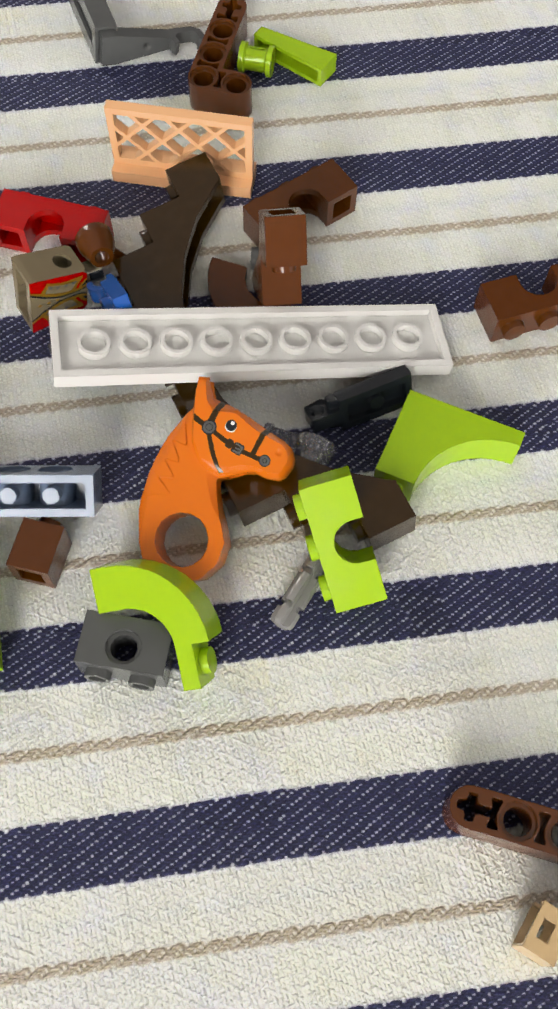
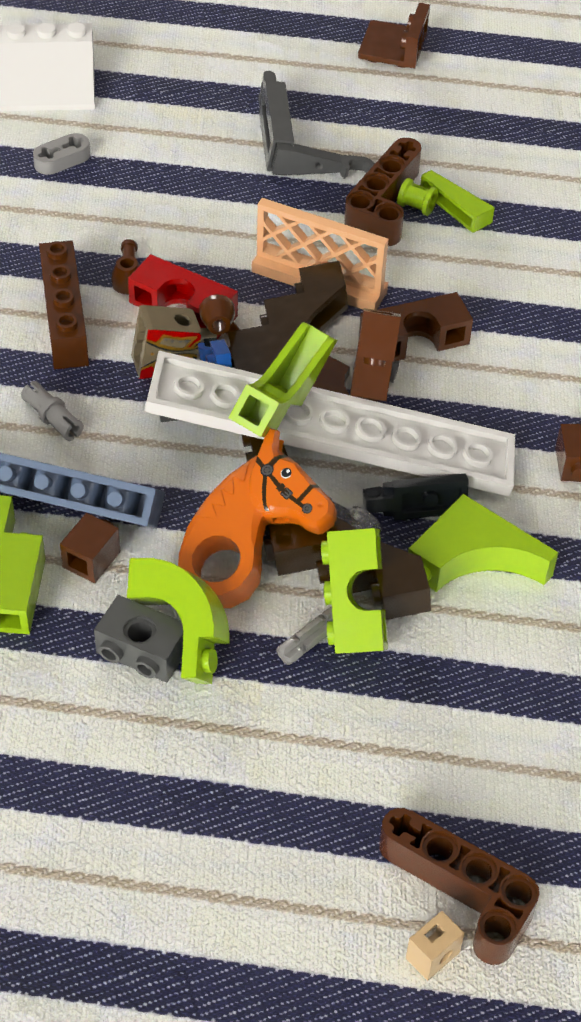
camera: 15 degrees right, 15 degrees down
(197, 318) = (285, 381): none -> lime arch

